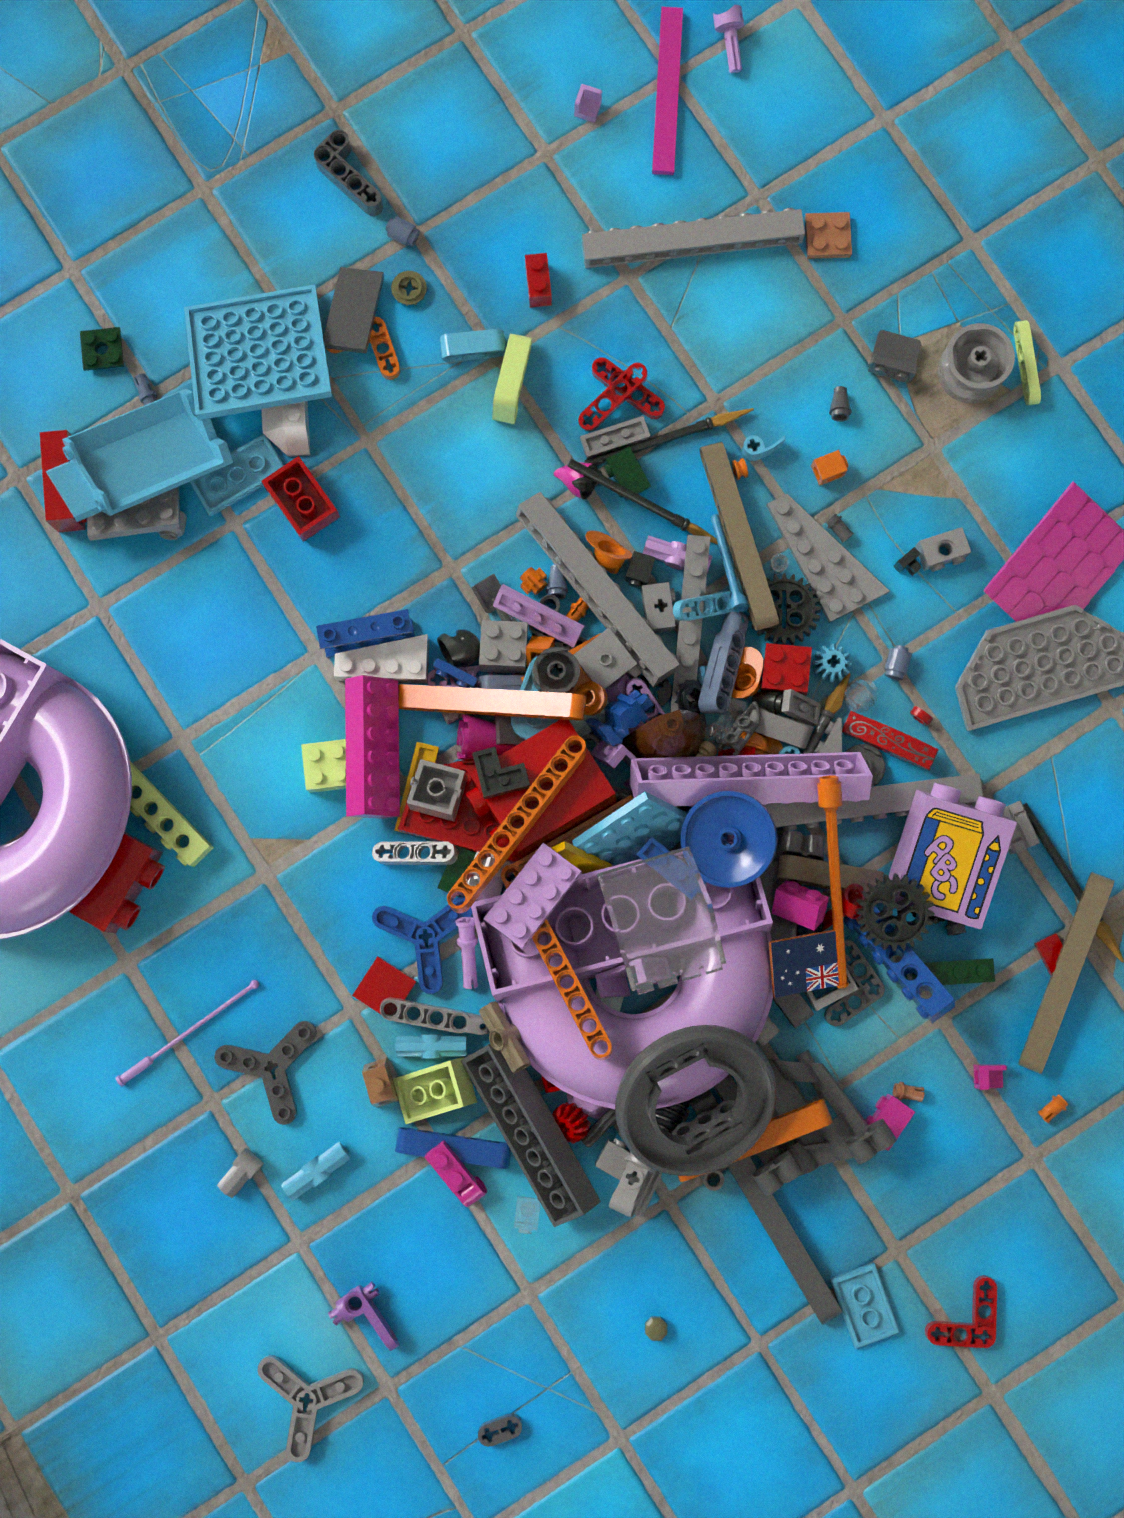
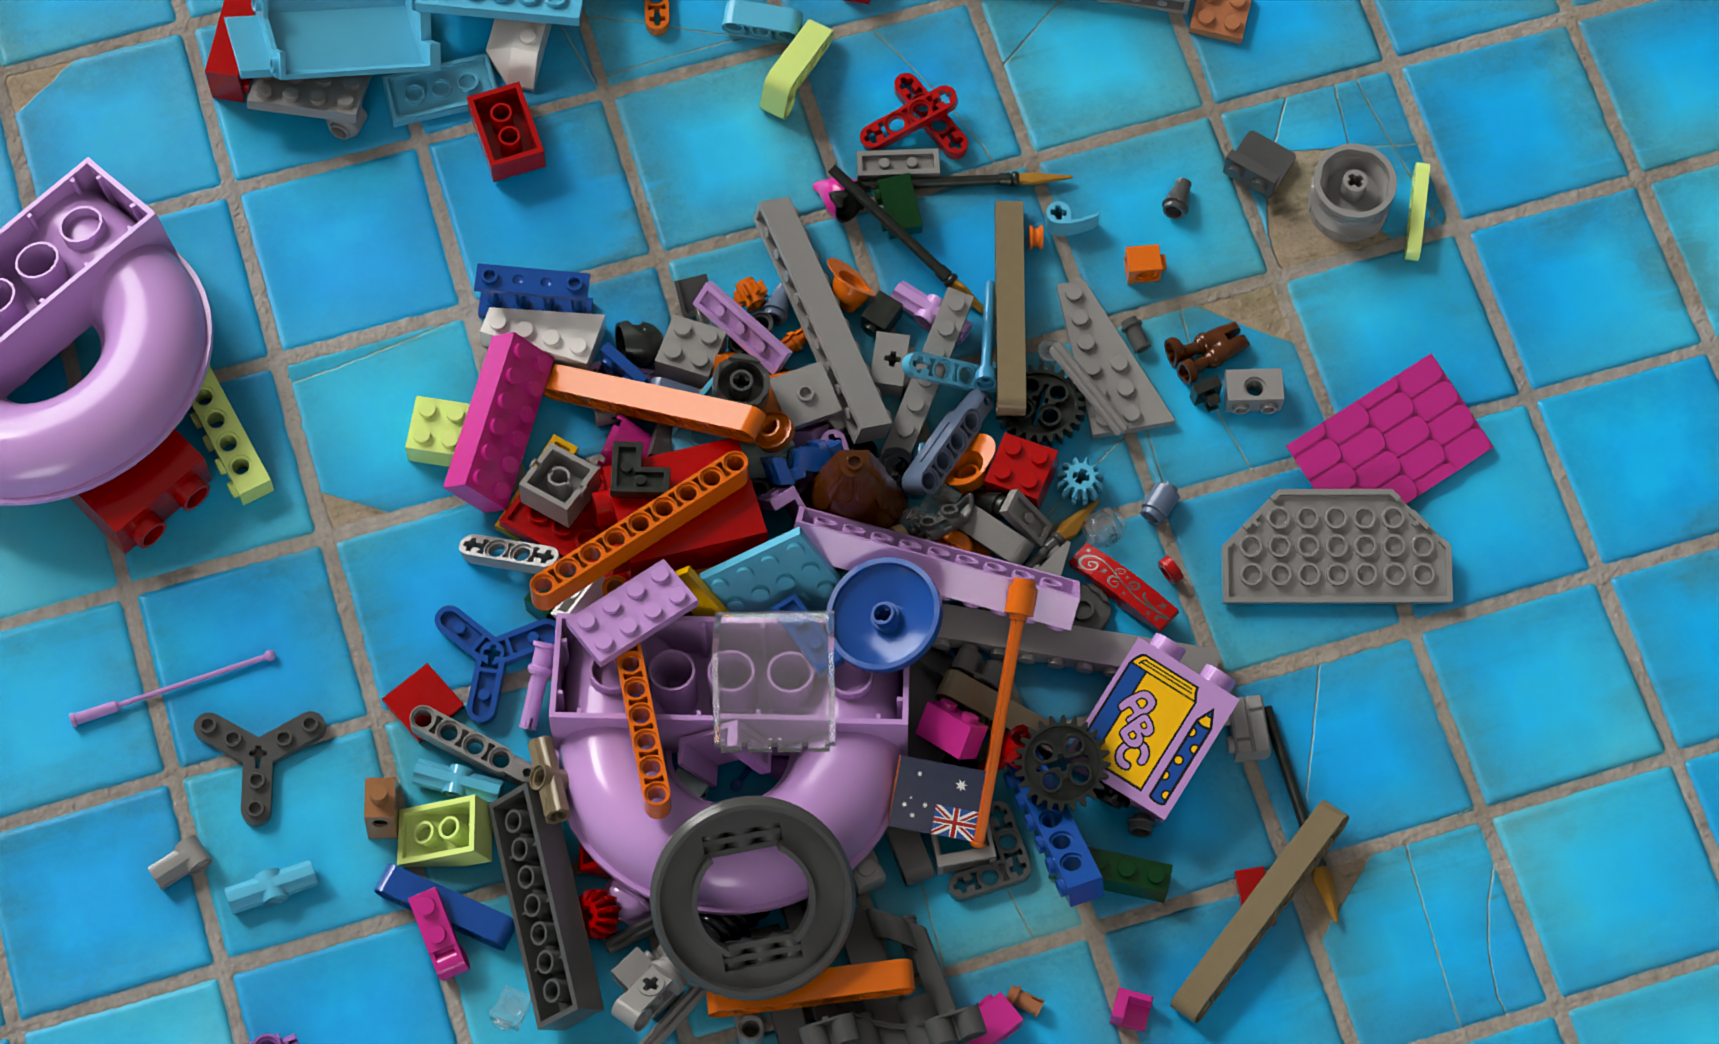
camera: 15 degrees right, 15 degrees down
(819, 587) = (1088, 388): none -> light grey axle
(903, 520) = (1217, 344): none -> reddish brown piece

